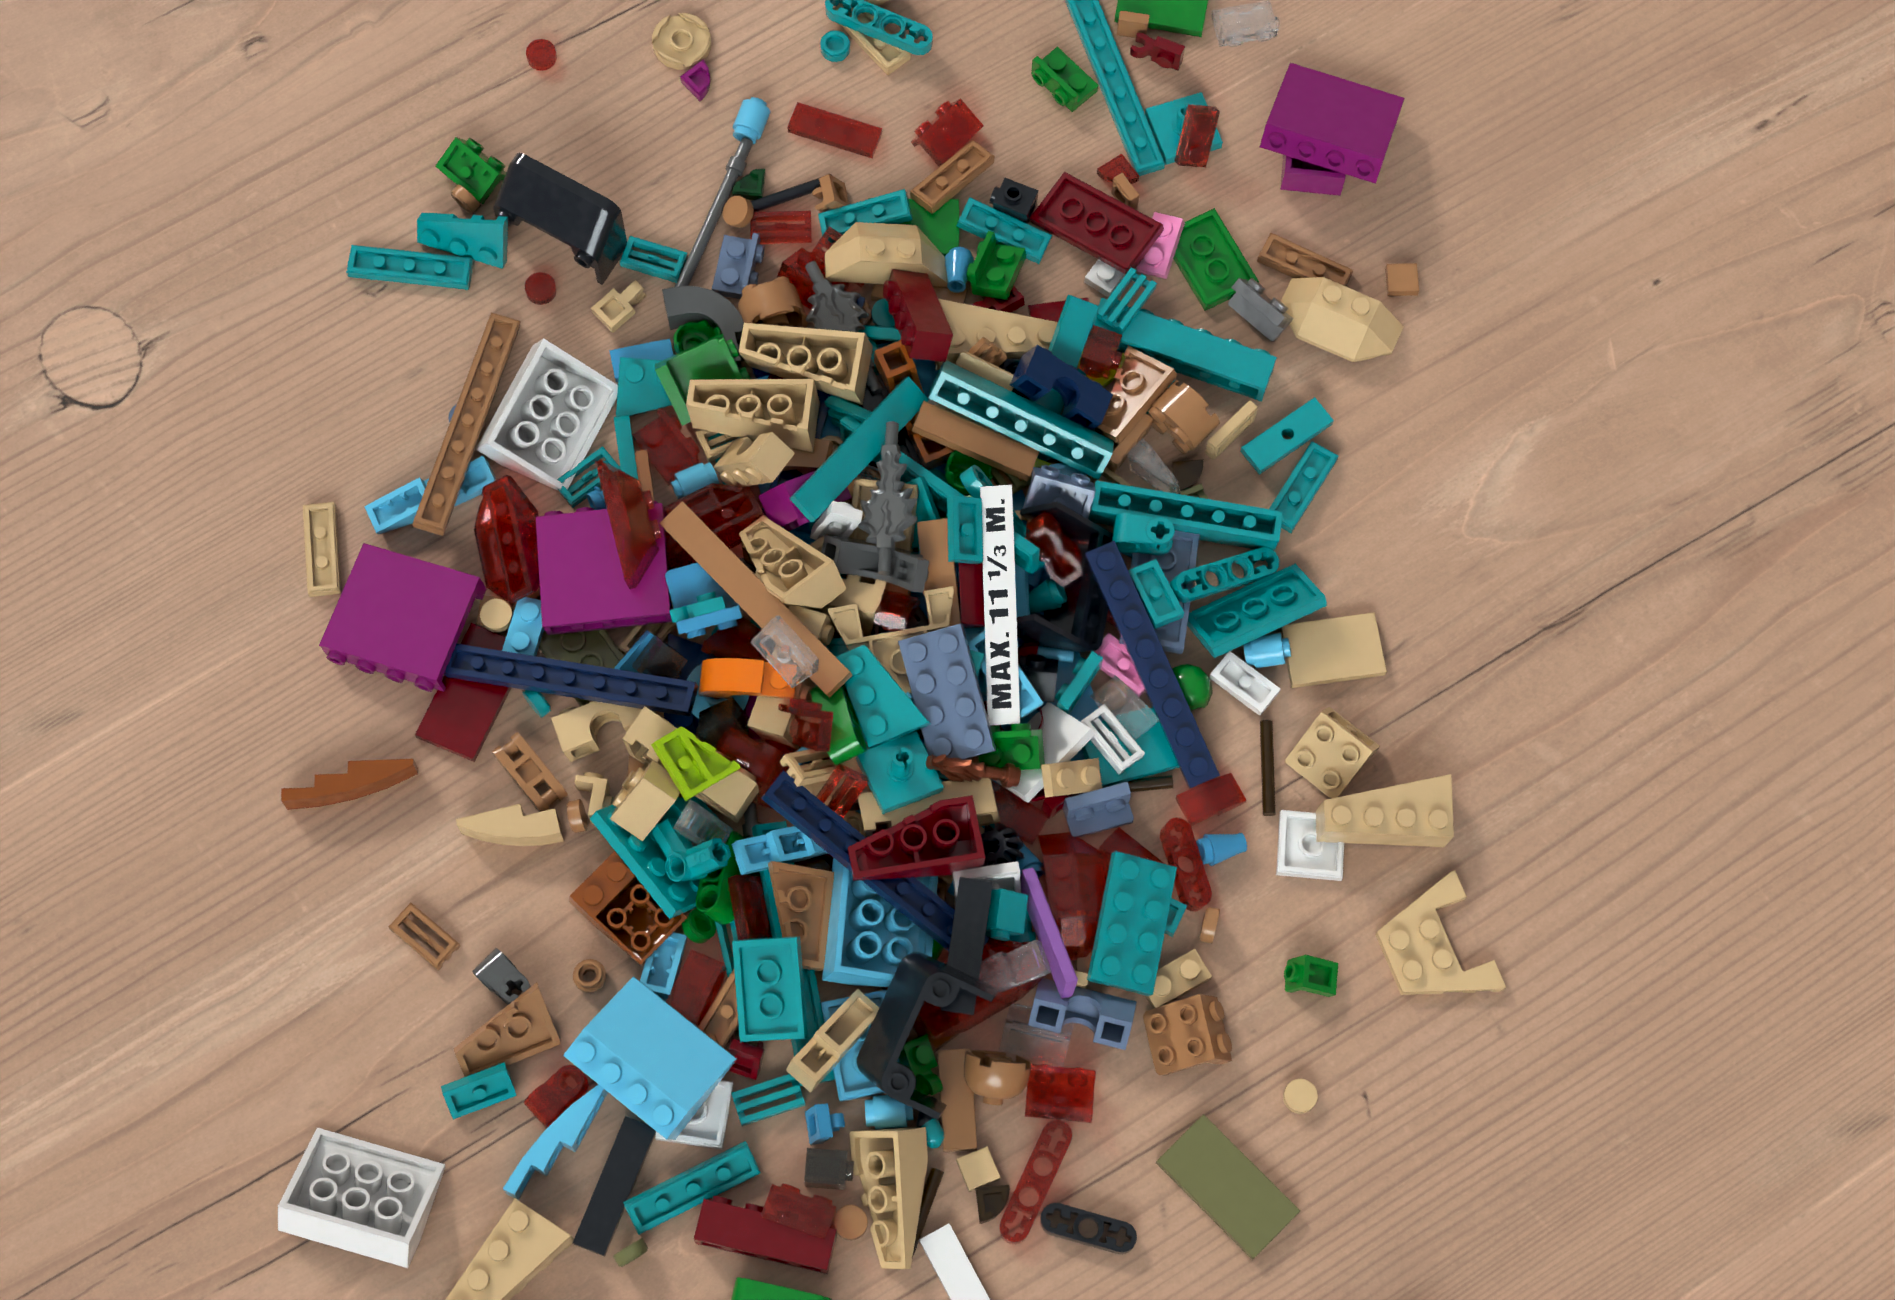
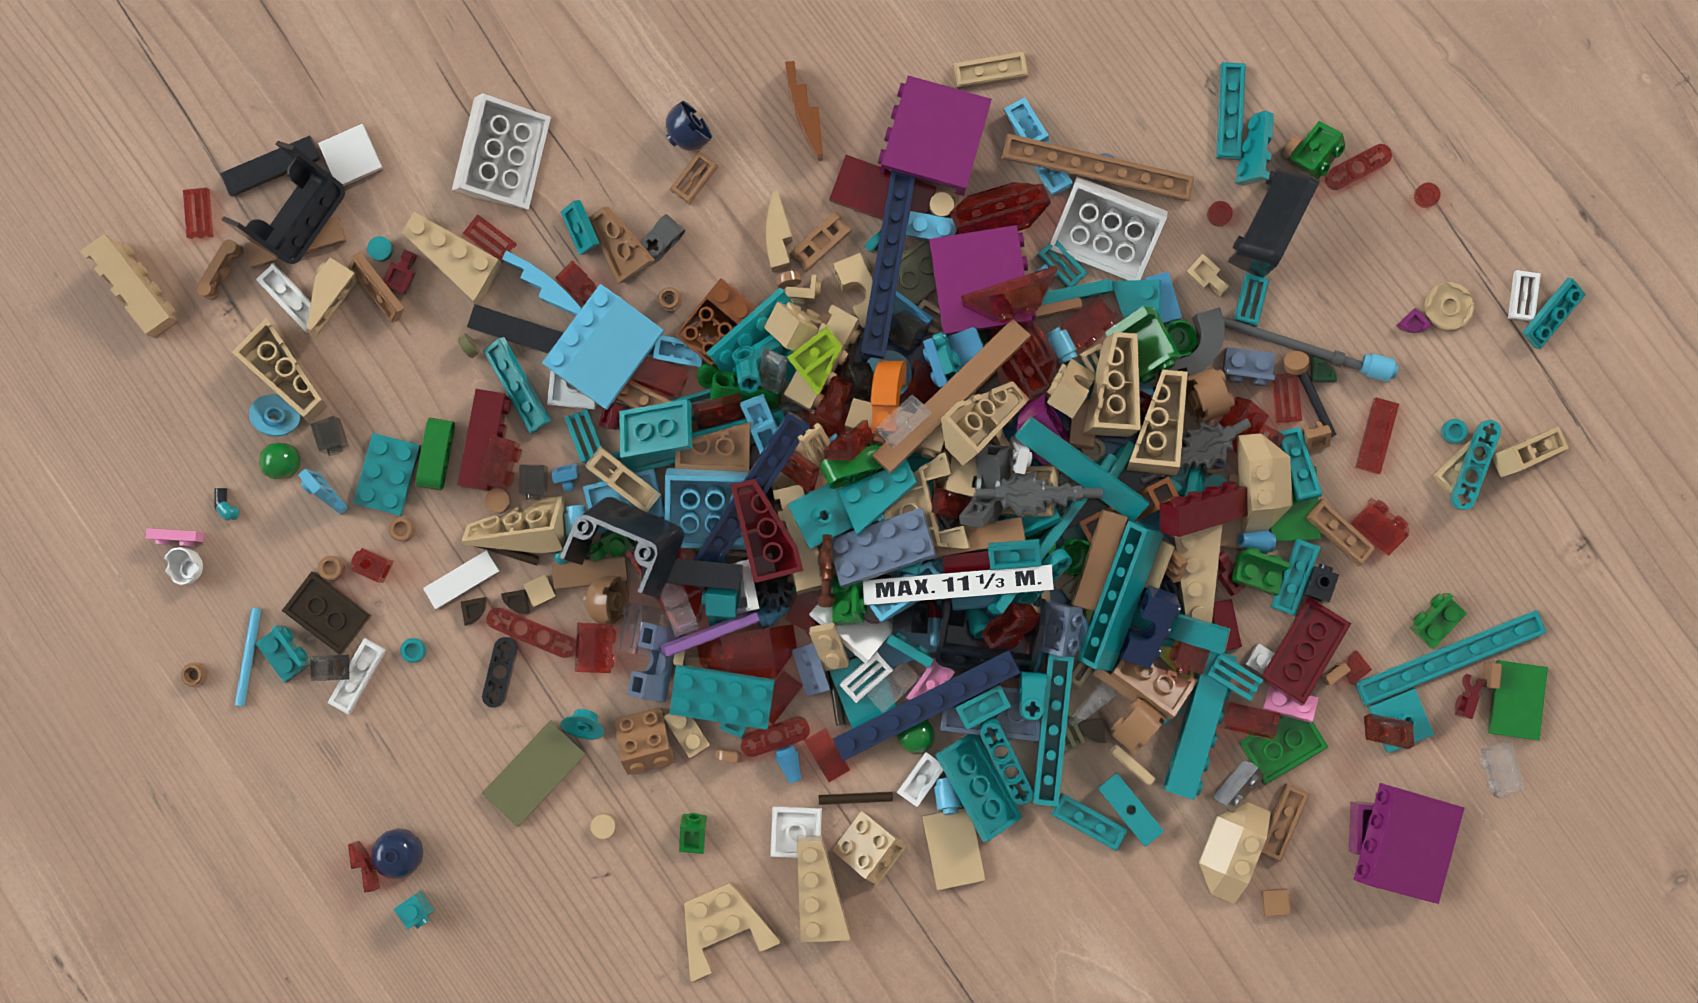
camera: 90 degrees right, 15 degrees up
(357, 938) = (685, 128): none -> dark blue cylinder
(470, 1212) = (472, 226): none -> clear red tile
(499, 115) = (1370, 153): none -> clear red beam
(1000, 1263) = (473, 610): none -> dark brown tile
(1164, 1113) = (583, 725): none -> teal piece
(1181, 287) = (1252, 721): none -> clear red hinge

